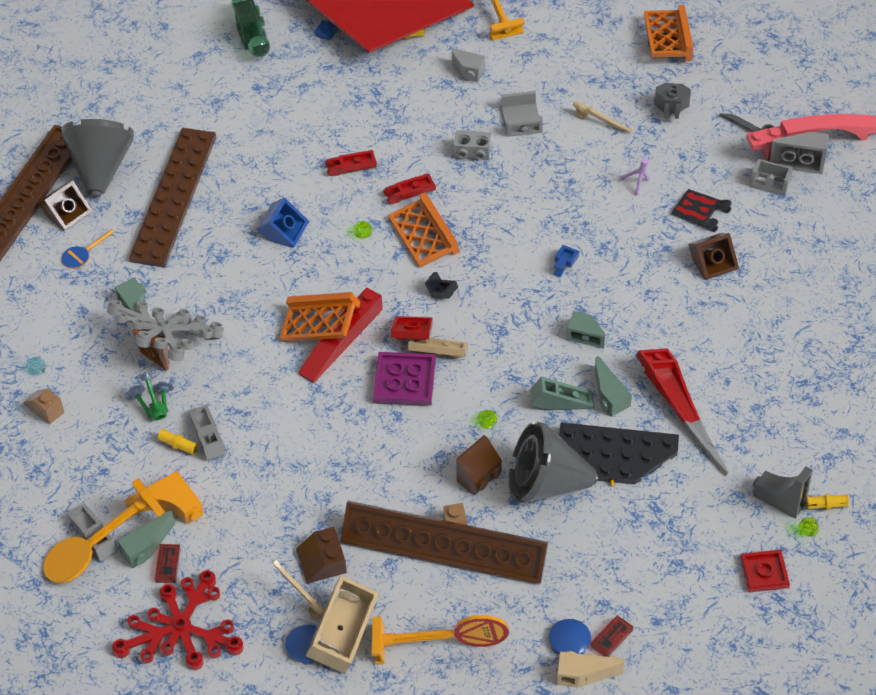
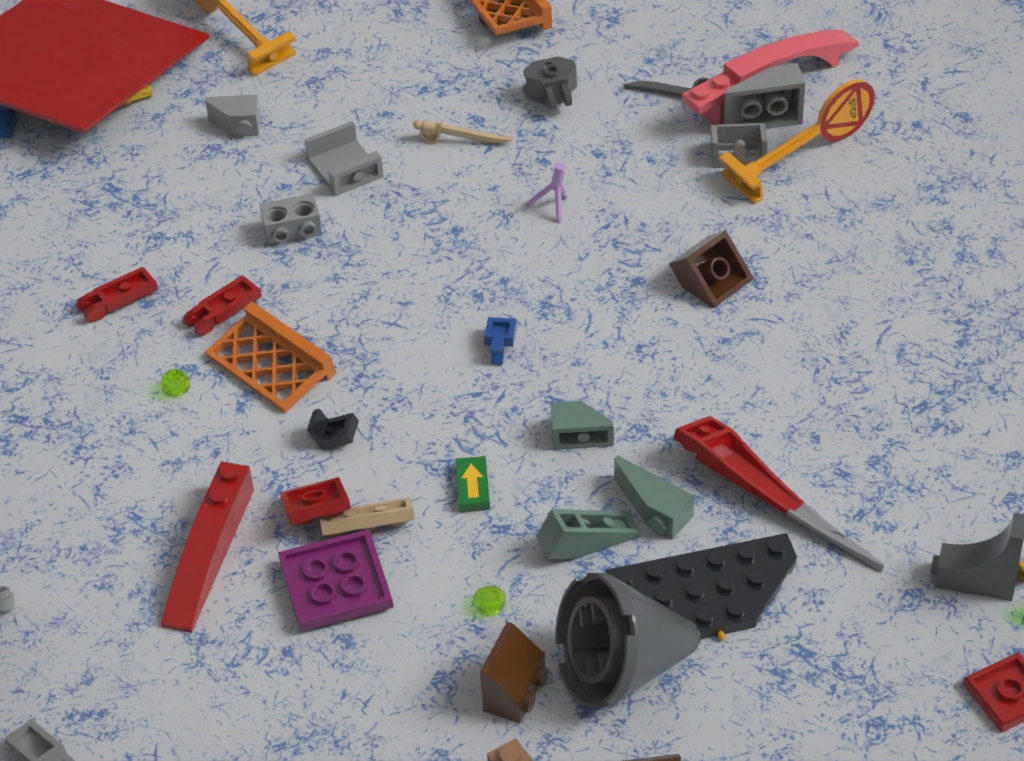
camera: 20 degrees left, 5 degrees down
(283, 223) = (46, 409): blue slope -> none
(319, 303) = (160, 507): orange fence -> none
(509, 345) = (472, 483): none -> green tile
(699, 208) = (660, 214): black flag -> none
(840, 178) = (838, 119): none -> light orange piece

